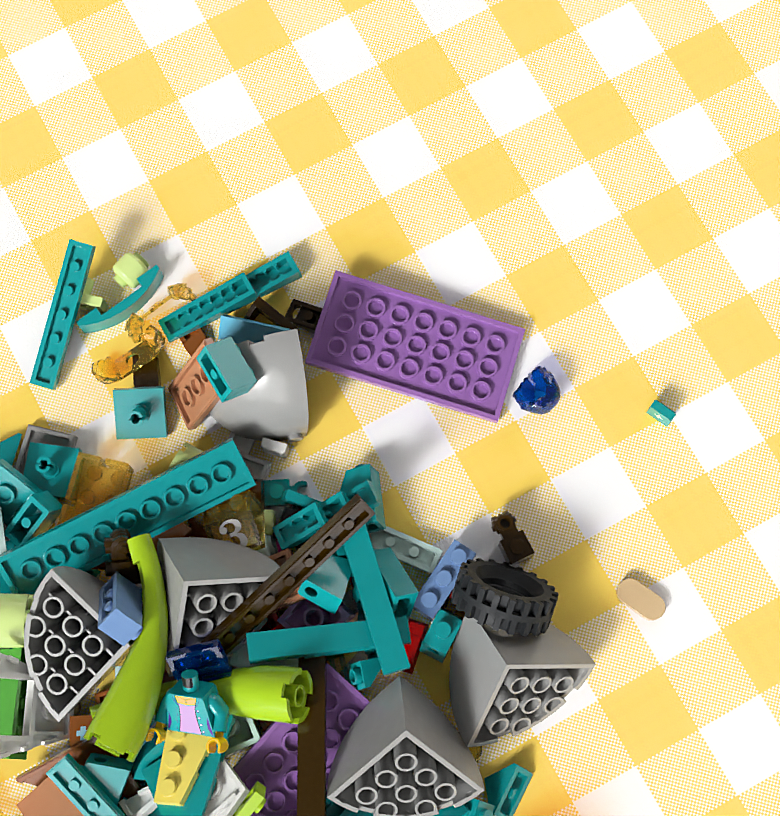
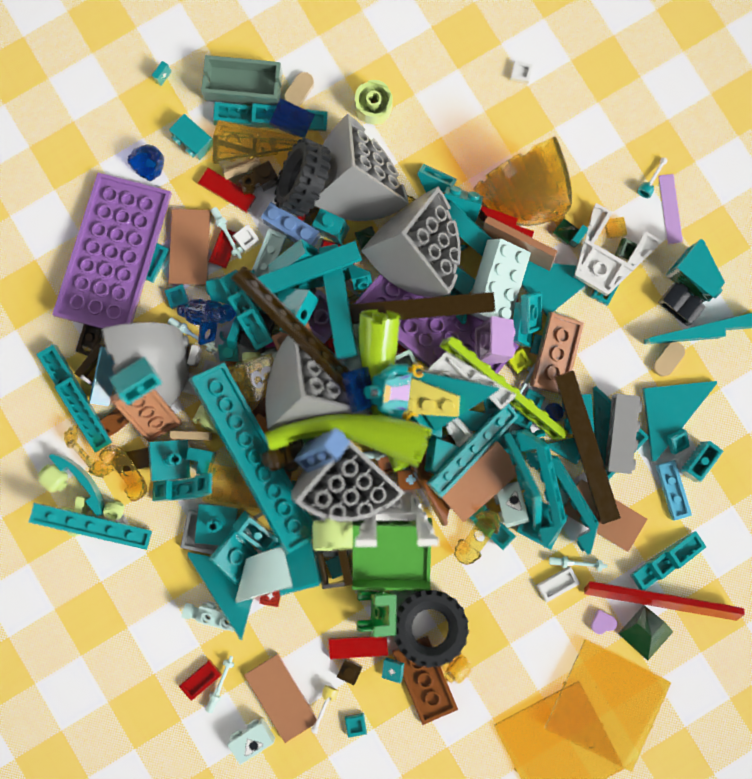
camera: 100 degrees left, 10 degrees up
(82, 343) = (113, 510): none -> yellowish green tile
(100, 429) = (182, 489): none -> teal slope
(140, 455) = (203, 458): none -> teal piece
(170, 439) = (185, 435): none -> tan tile
(313, 434) = (183, 327): none -> light aqua piece
(325, 463) = (206, 315): none -> clear blue piece
(357, 427) = (176, 296): none -> teal tile
(408, 404) = (158, 259): none -> teal tile
(420, 490) = (222, 250): none -> red tile
(422, 445) = (189, 247): none -> nougat tile
(427, 684) = (363, 236): none -> dark green tile
(431, 519) = (245, 237): none -> white tile
(453, 487) = (221, 222): none -> light aqua piece
(499, 495) = (226, 190): none -> red tile
(528, 516) = (240, 167): none -> tan tile
(564, 513) = (241, 141): none -> clear yellow wedge
(572, 450) = (191, 137): none -> teal brick
(595, 587) = (291, 119): none -> clear blue plate
(601, 558) = (259, 115): none -> teal slope
(632, 696) = (365, 95): none -> yellowish green brick
(649, 520) = (241, 80): none -> sand green piece

